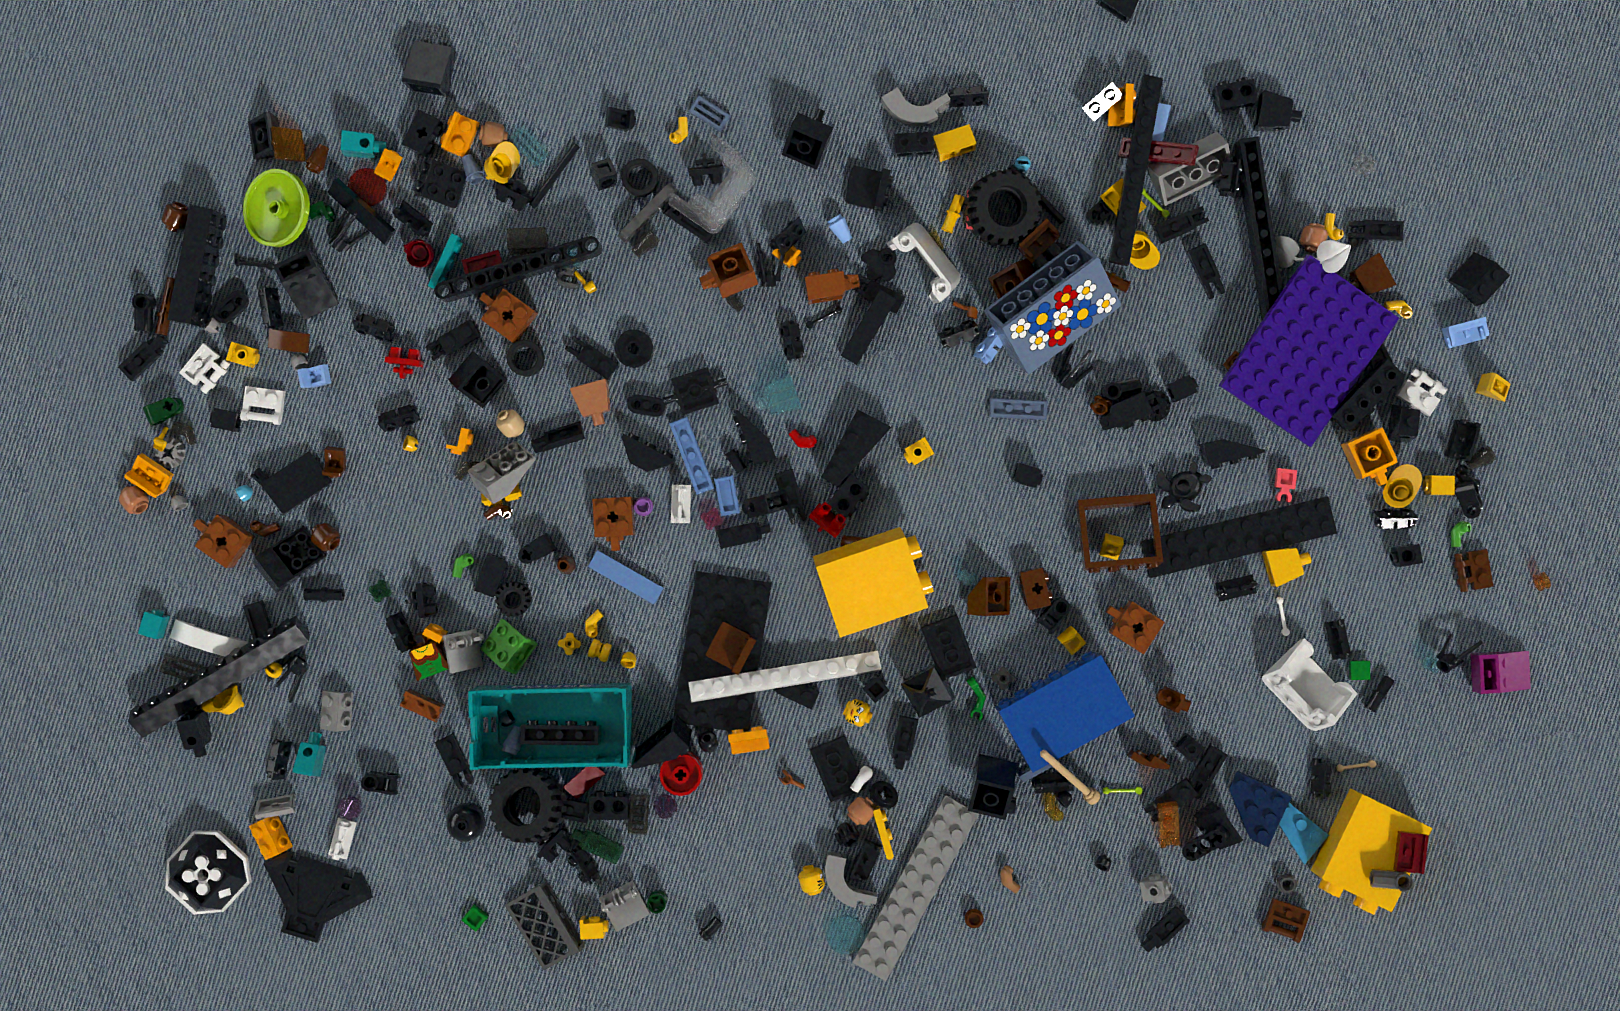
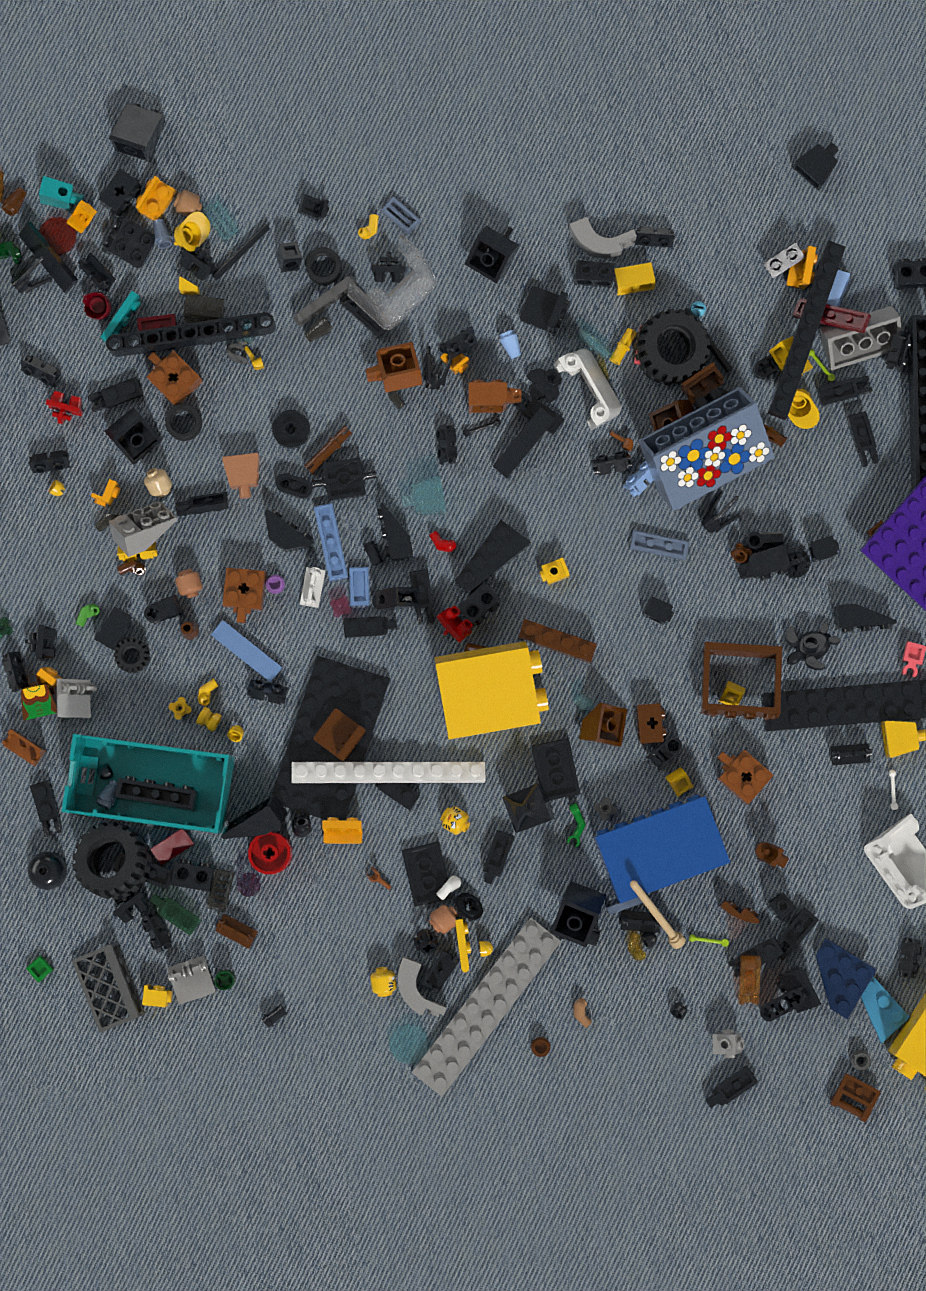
camera: 15 degrees right, 5 degrees down
(507, 221) = (187, 287): none -> yellow slope
(508, 647) = (119, 702): bright green bracket -> none
(557, 519) = (188, 583): none -> nougat head
(593, 359) = (250, 433): black hinge -> none
(643, 613) = (258, 689): none -> black hinge
(660, 852) = (236, 931): none -> reddish brown hinge
(673, 364) = (333, 444): none -> reddish brown pin
(875, 688) = (476, 798): black brick -> none
(906, 832) = (485, 948): none -> yellow hinge
(924, 215) = (595, 344): none -> clear light blue pin
(931, 521) = (557, 641): none -> reddish brown brick

